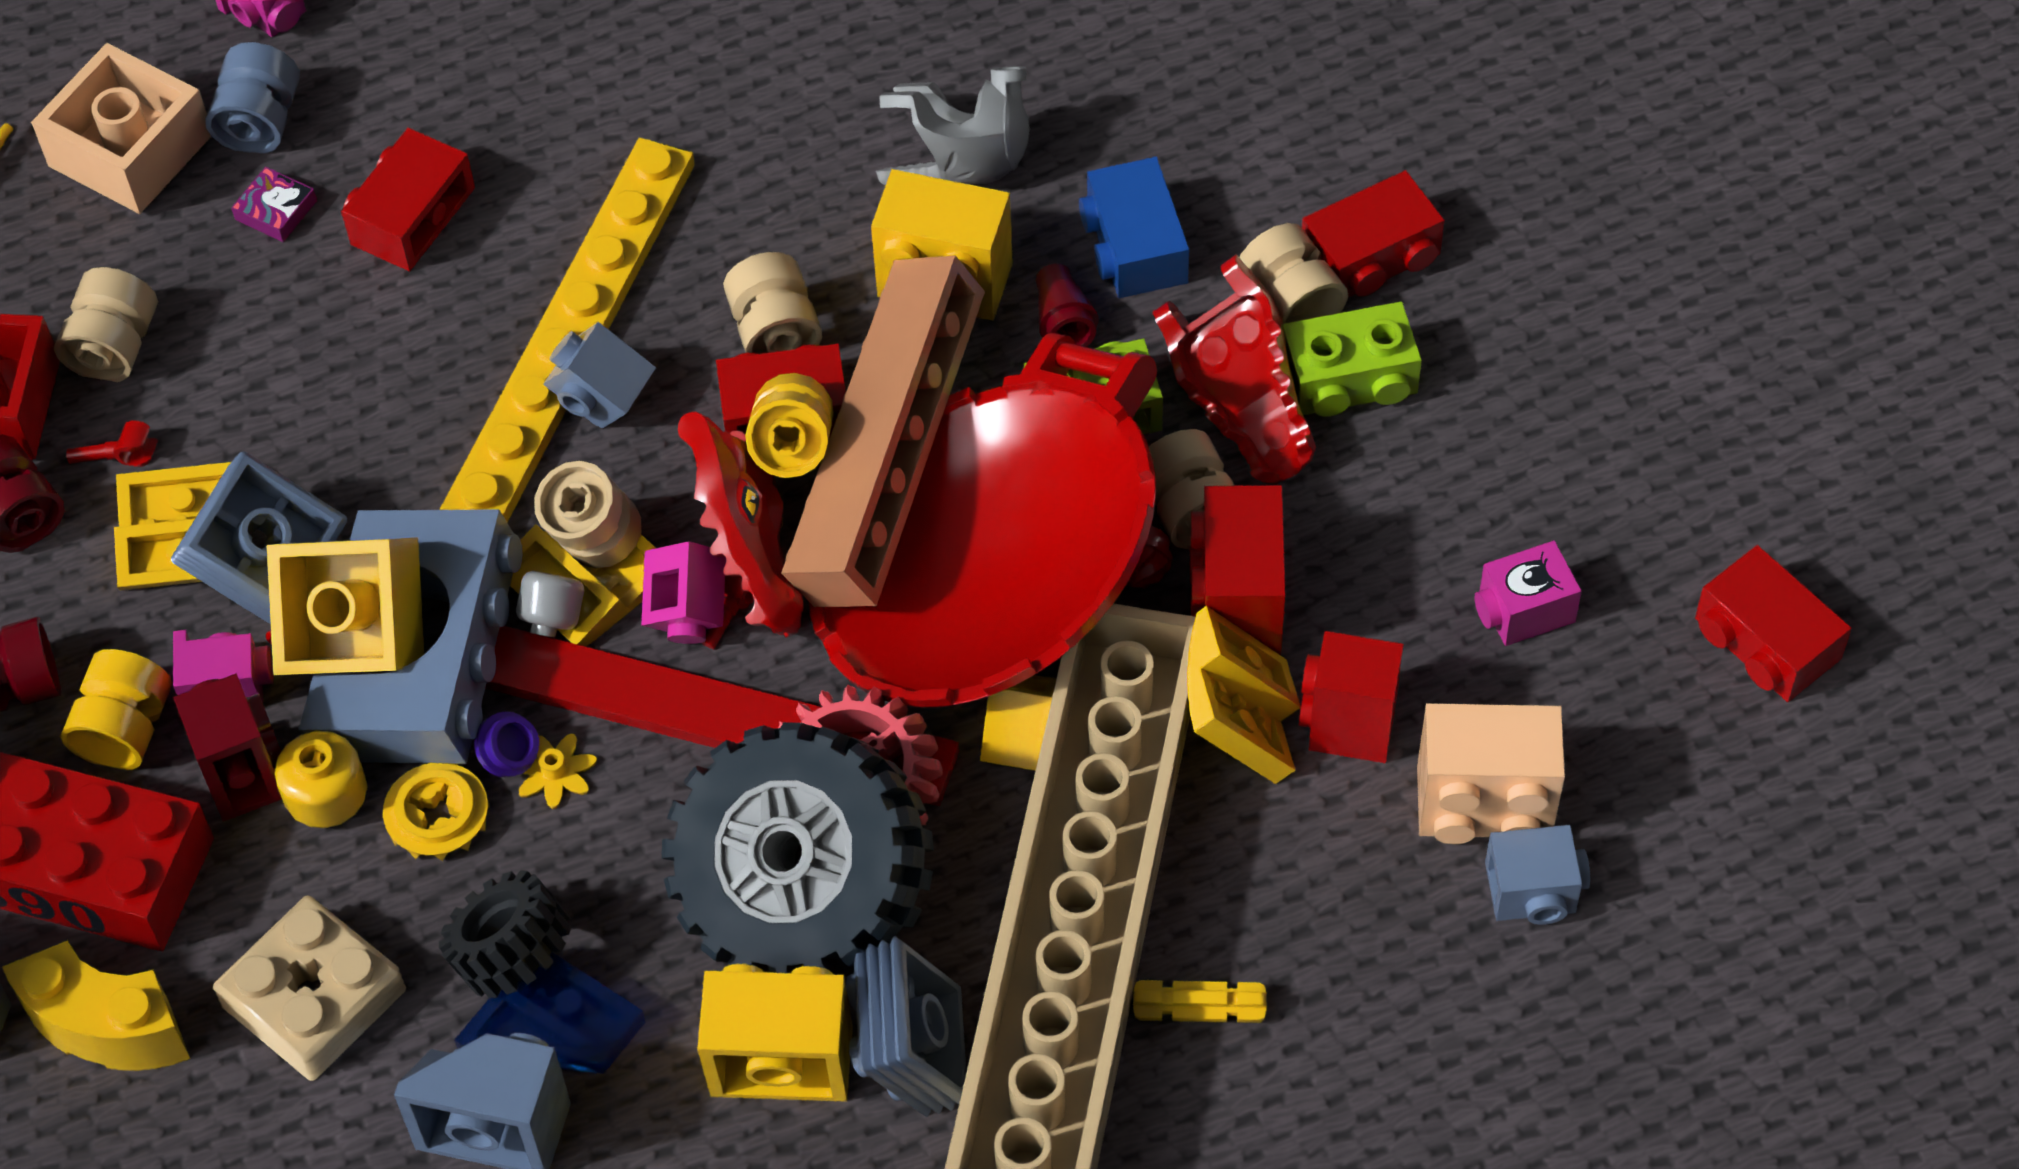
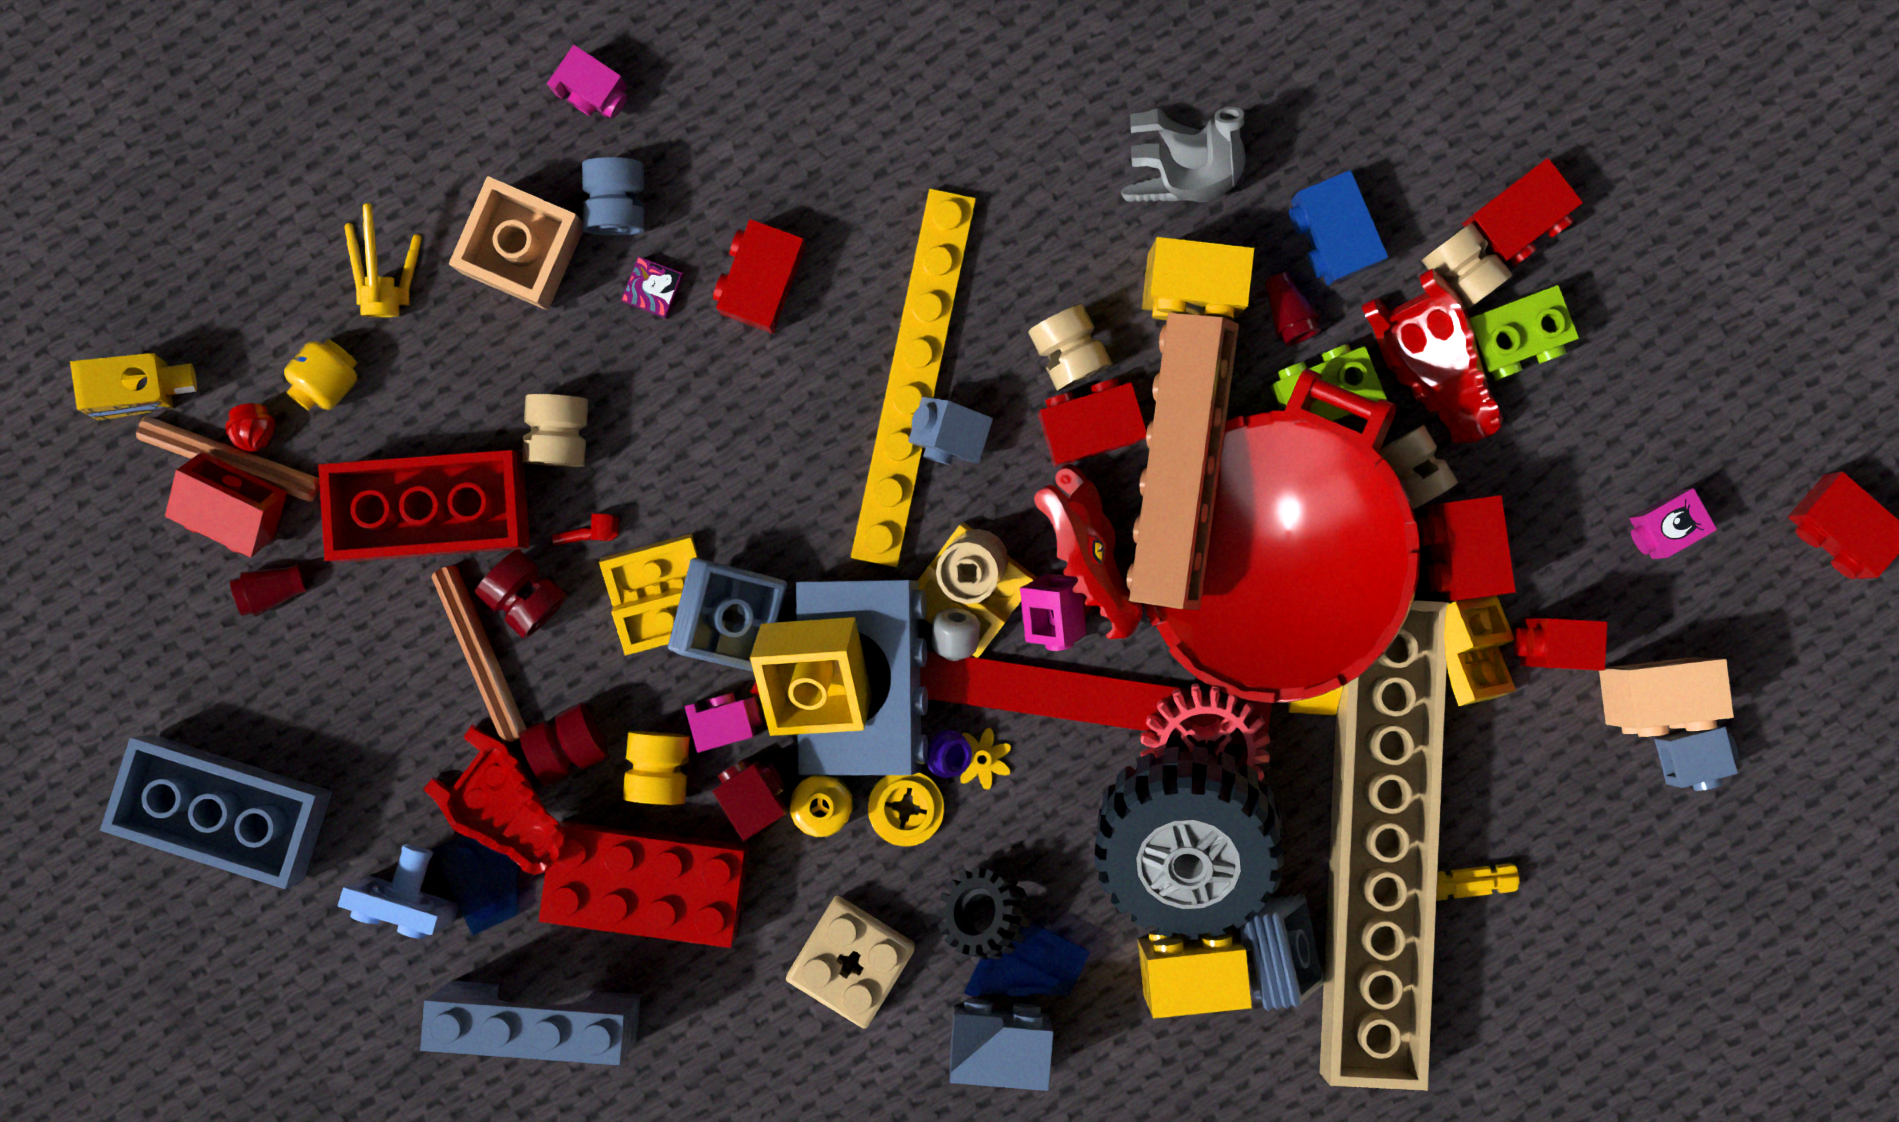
camera: 15 degrees left, 30 degrees up
(96, 1013) = (708, 1010): yellow brick -> none
(789, 425) = (1114, 476): yellow wheel -> none

